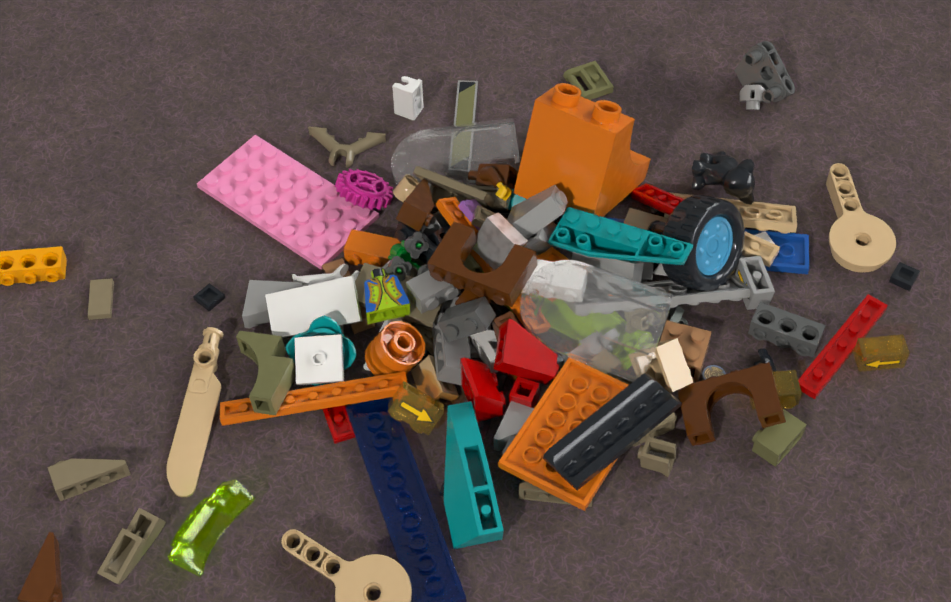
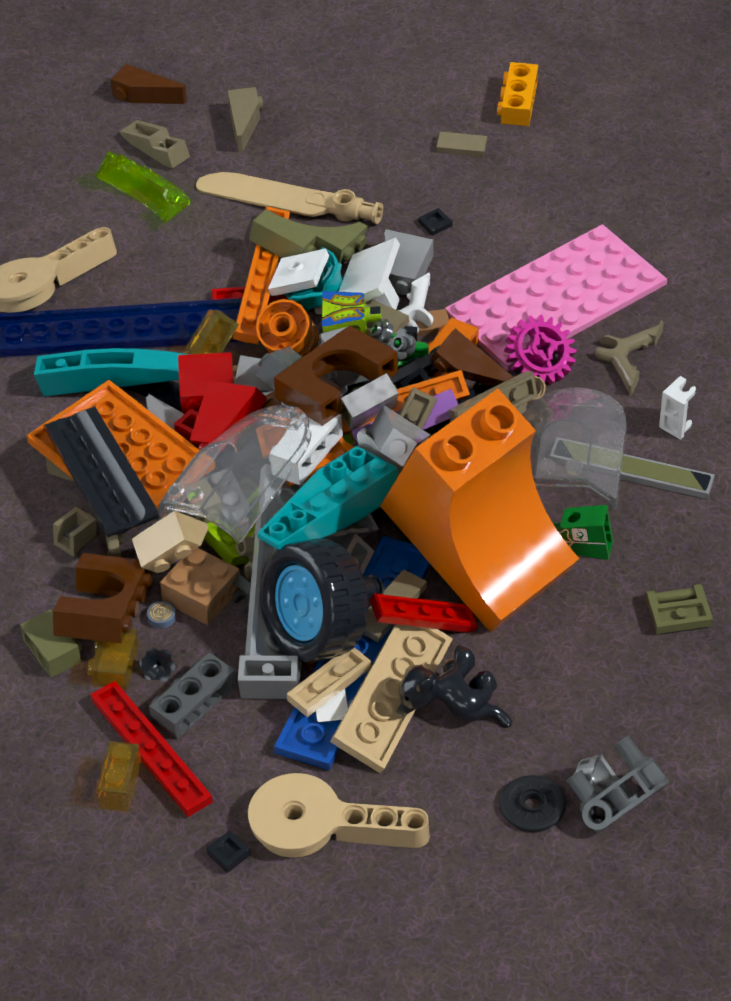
camera: 105 degrees right, 5 degrees down
(770, 123) = (532, 819): none -> black wheel

